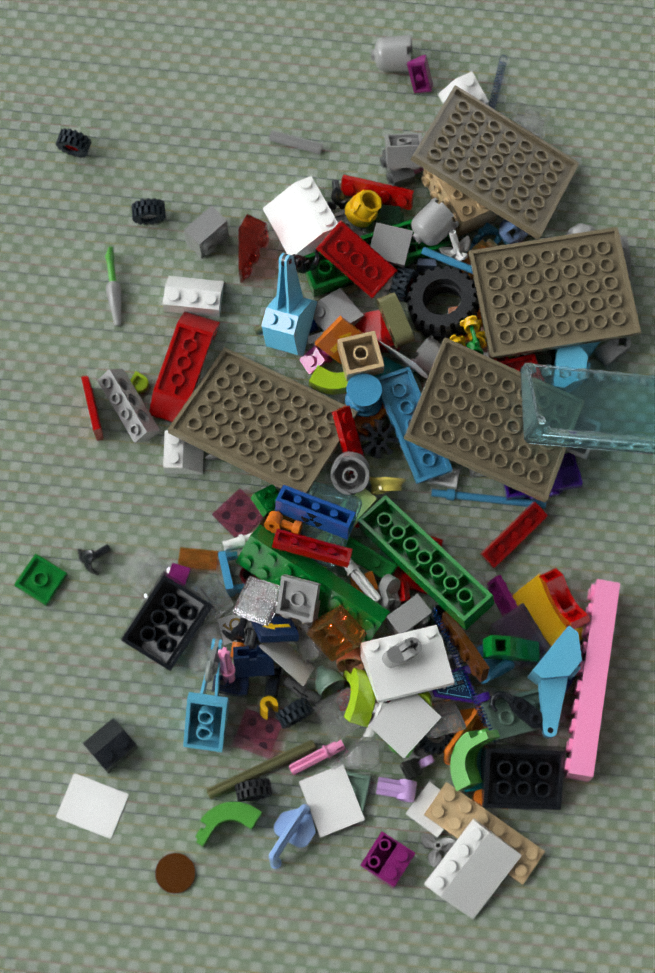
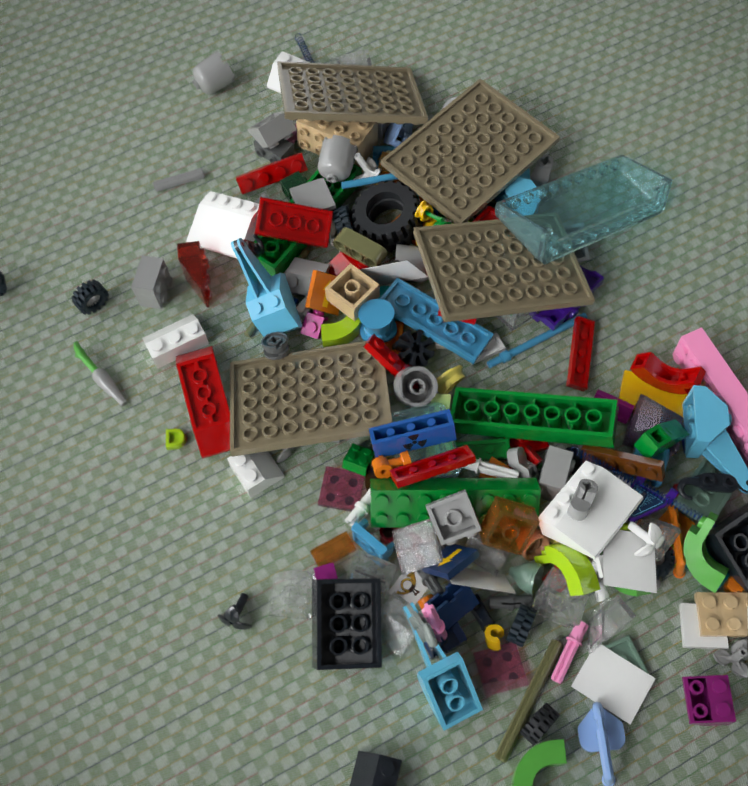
camera: 30 degrees left, 10 degrees down
(40, 579) = (200, 668): green tile -> none
(92, 407) = (147, 482): red tile -> none
(128, 405) = (179, 460): light grey brick -> none
(237, 632) = (418, 588): black plant -> none
(268, 359) = (275, 345): none -> dark grey wheel
(337, 196) = (242, 193): black plant -> none
(363, 208) = (269, 185): yellow piece -> none
(400, 789) = (663, 627): lavender piece -> none
(413, 768) = (659, 602): pearl dark grey piece -> none
(420, 74) = (243, 76): magenta slope -> none
(425, 264) = (350, 199): sand blue tile -> none
(433, 715) = (652, 538): none -> white plant

